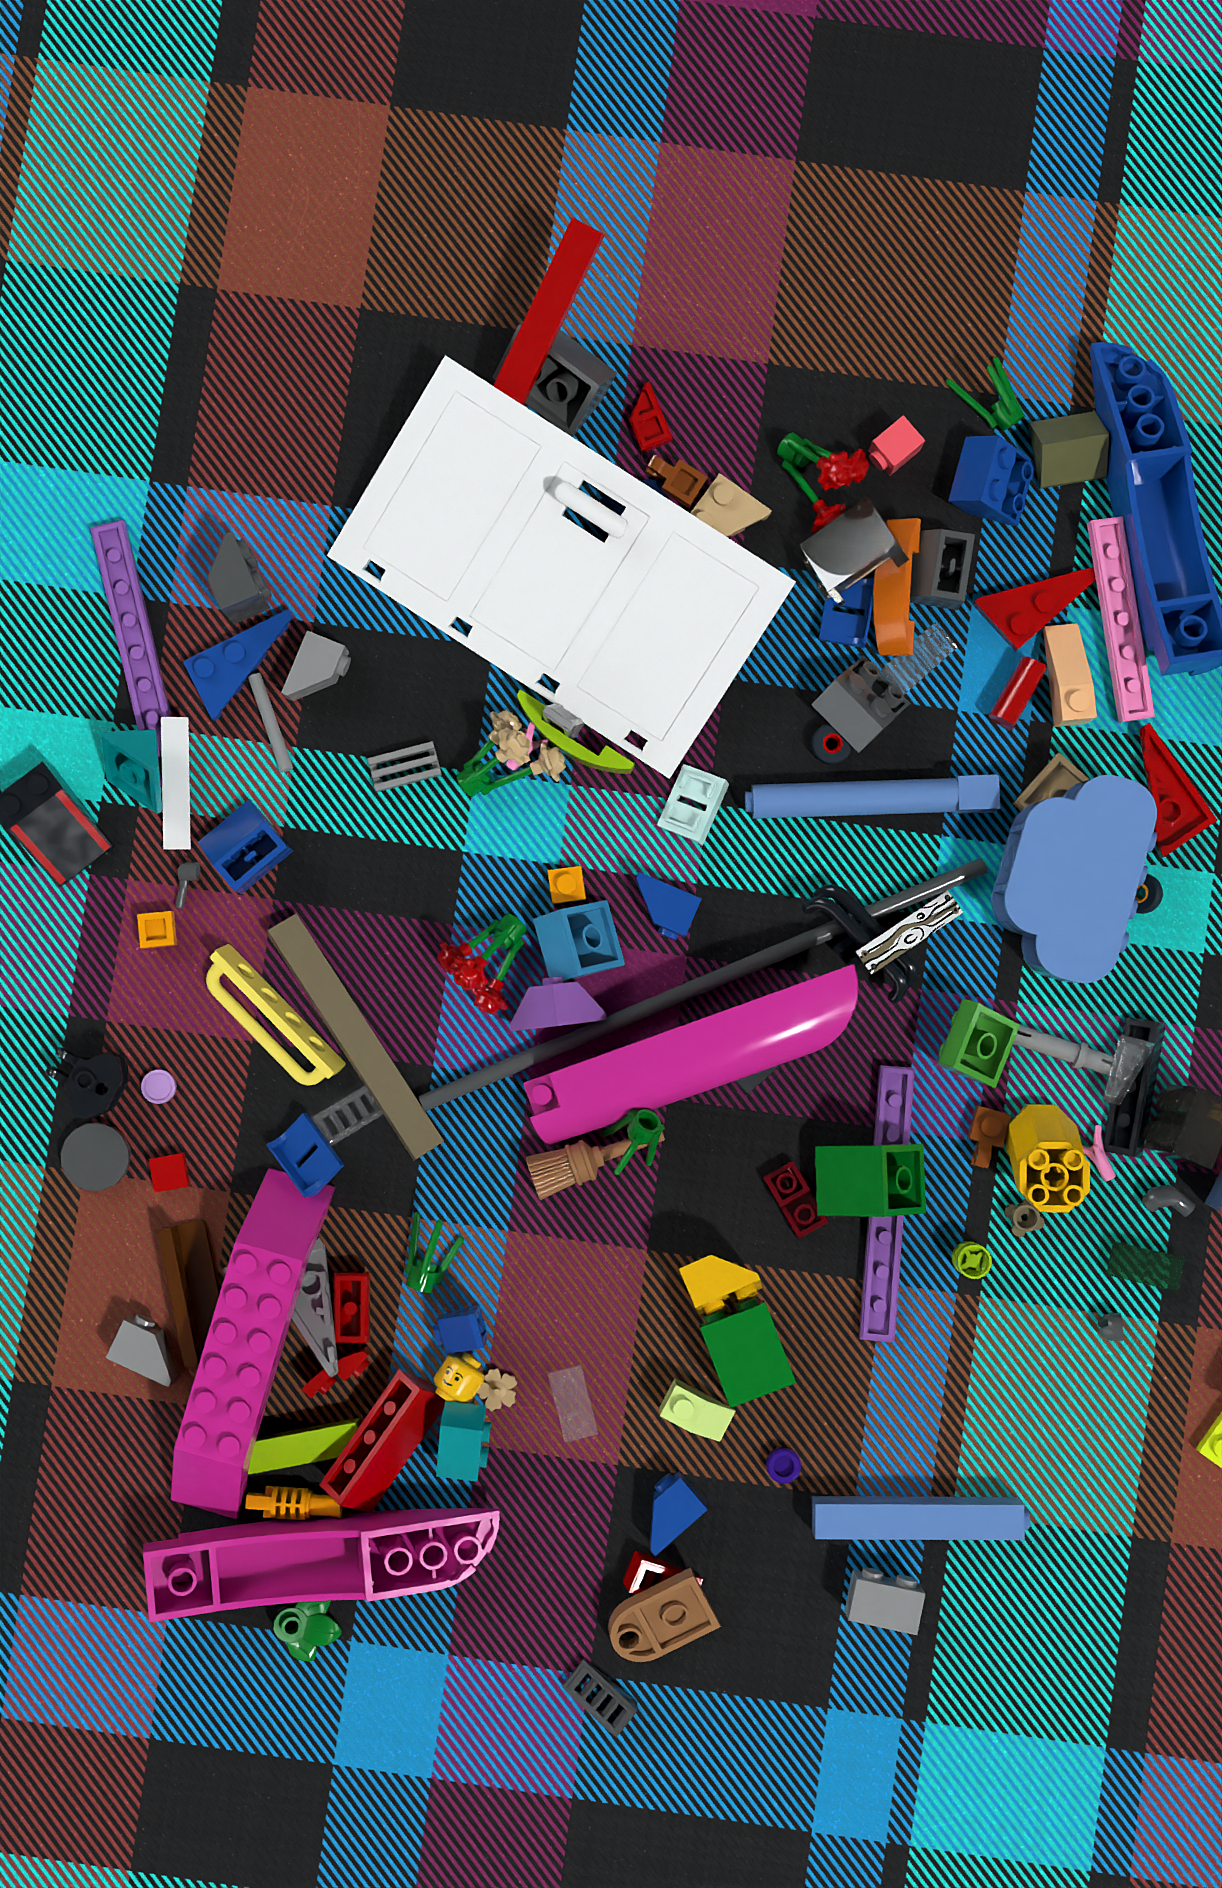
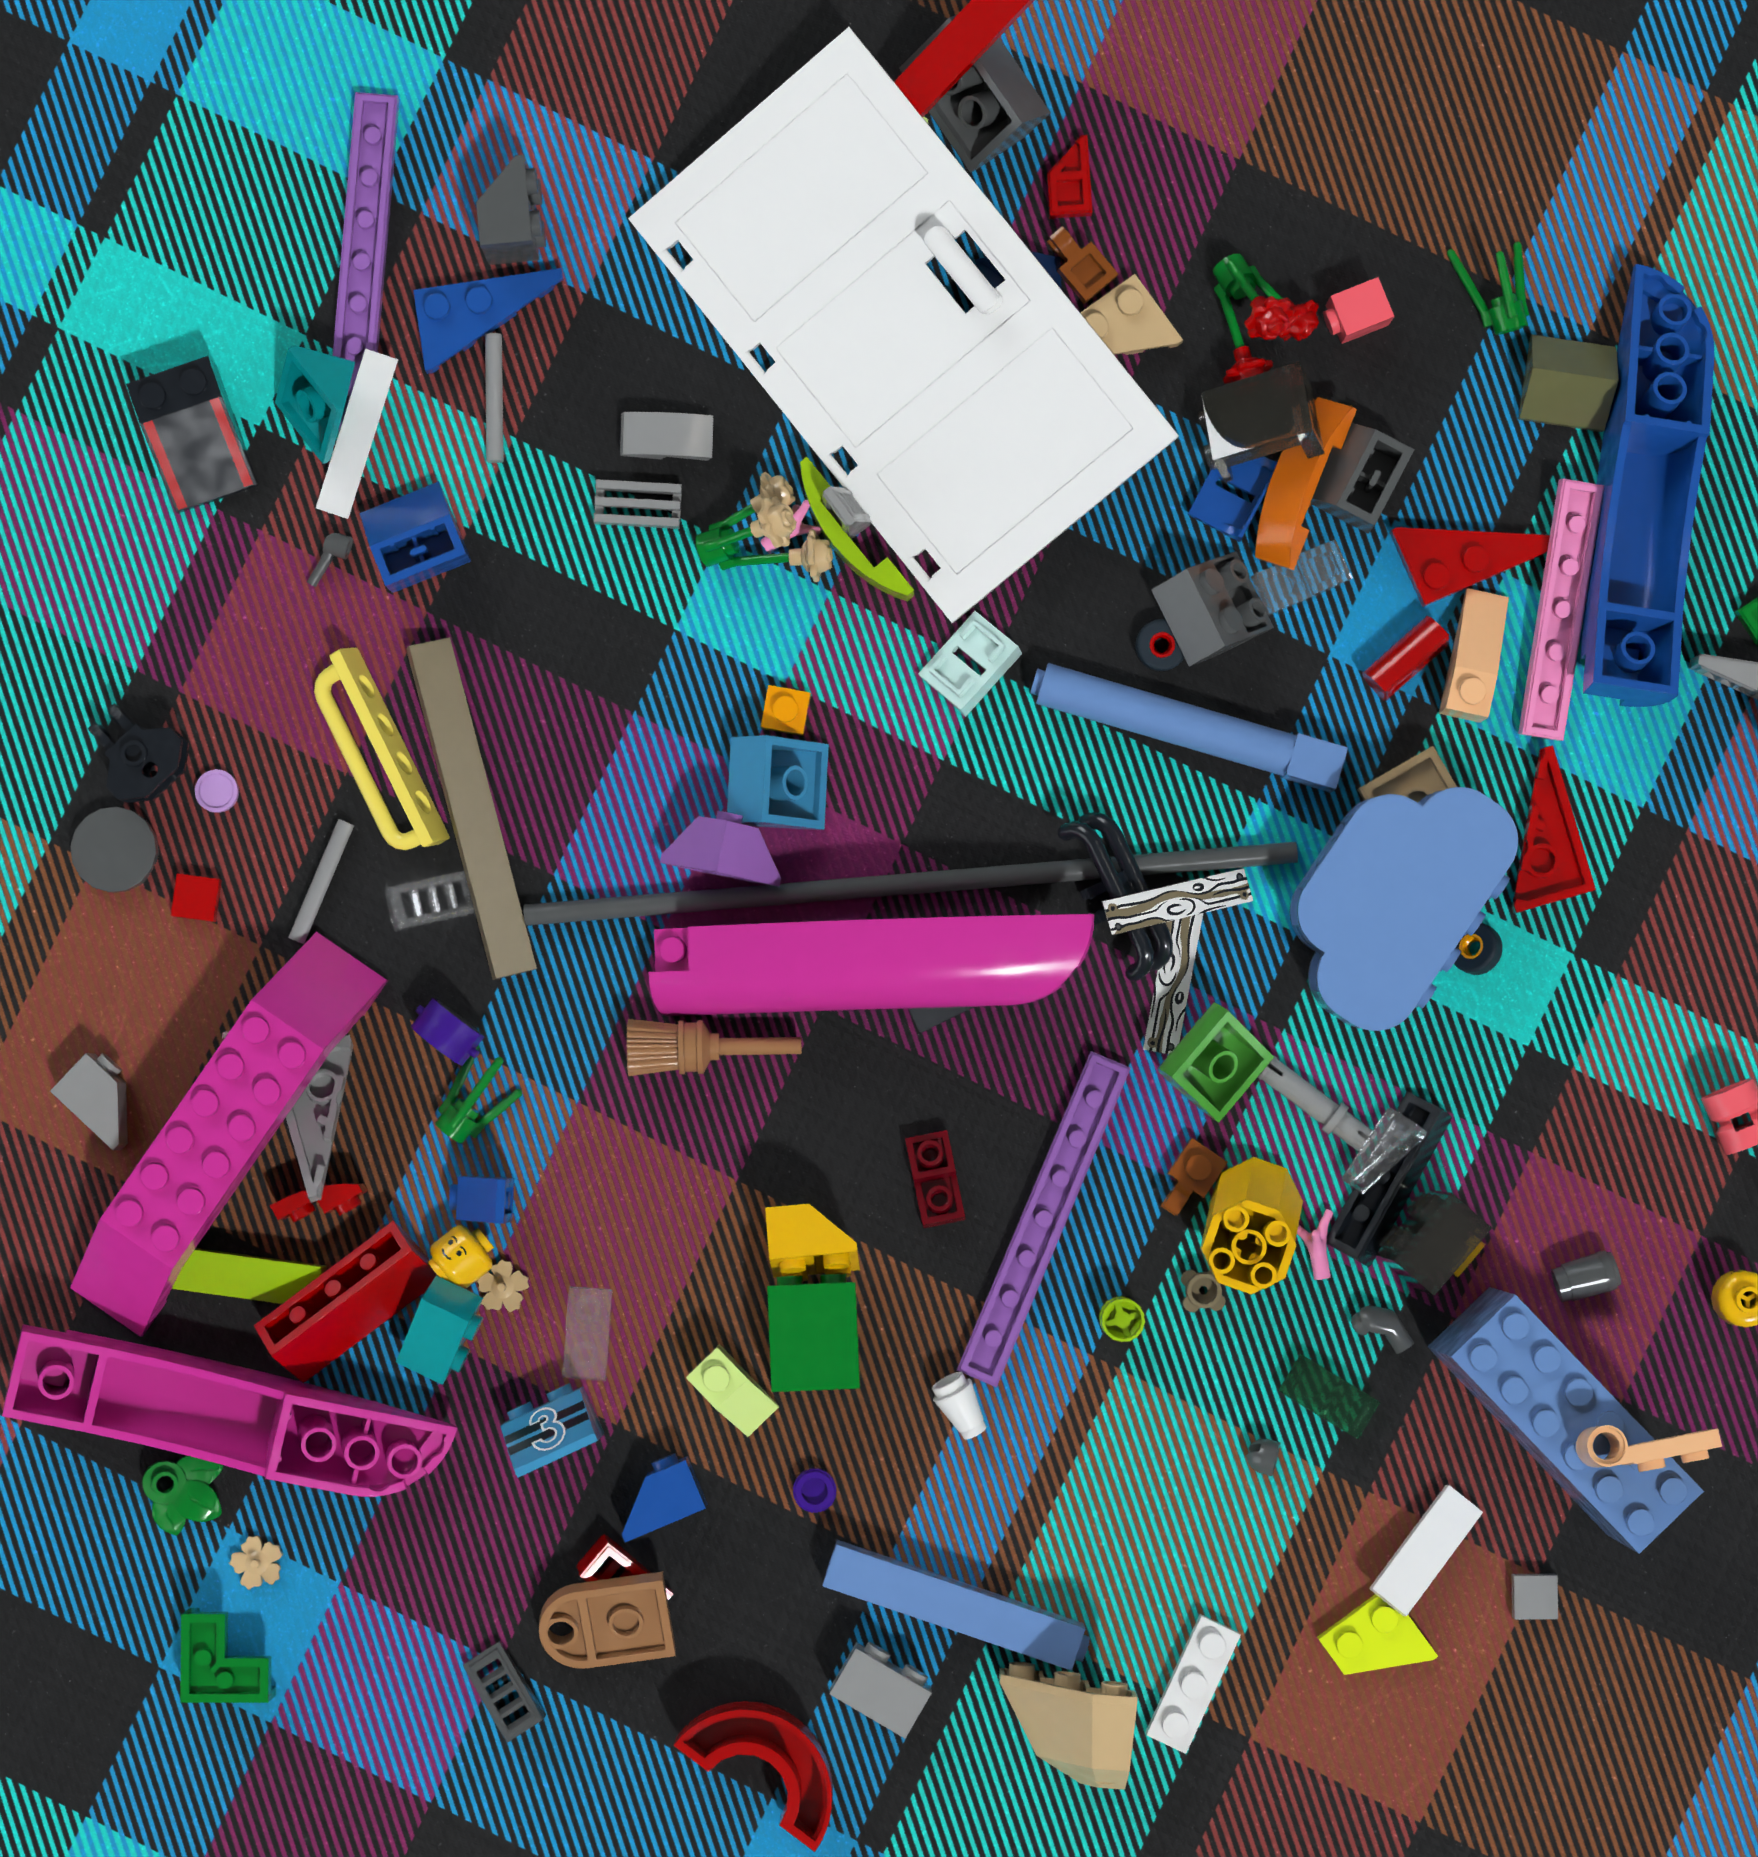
camera: 20 degrees right, 0 degrees up
(157, 929) = (276, 602): light orange plate -> none
(190, 1284) = (178, 1038): reddish brown panel -> none
(259, 1129) = (321, 881): none -> light grey bar
(292, 1503) = (215, 1340): light orange hinge -> none
(295, 1145) = (357, 914): blue piece -> none
(315, 666) = (570, 348): light grey slope -> none
(352, 1306) = (361, 1129): red brick -> none
(373, 1761) = (210, 1673): none -> green panel
(381, 1660) = (257, 1562): none -> tan plant
(392, 1212) = (447, 1031): none -> dark purple piece
(409, 707) = (666, 435): none -> light grey slope
(470, 972) = (634, 774): red plant -> none
(570, 1489) = (551, 1430): none -> dark azure slope
(642, 1128) = (779, 1027): green plant -> none
(667, 906) = (898, 776): blue slope -> none
(819, 1666) = (778, 1739): none -> red brick
(870, 1180) = (1031, 1181): green slope -> none
(871, 1364) = (960, 1404): none -> white cone
(925, 998) = (1173, 987): none -> sticker
(992, 479) = (1461, 390): blue slope -> none
(1039, 1582) = (1075, 1725): none -> tan brick
(1115, 1516) = (1192, 1683): none -> white plate

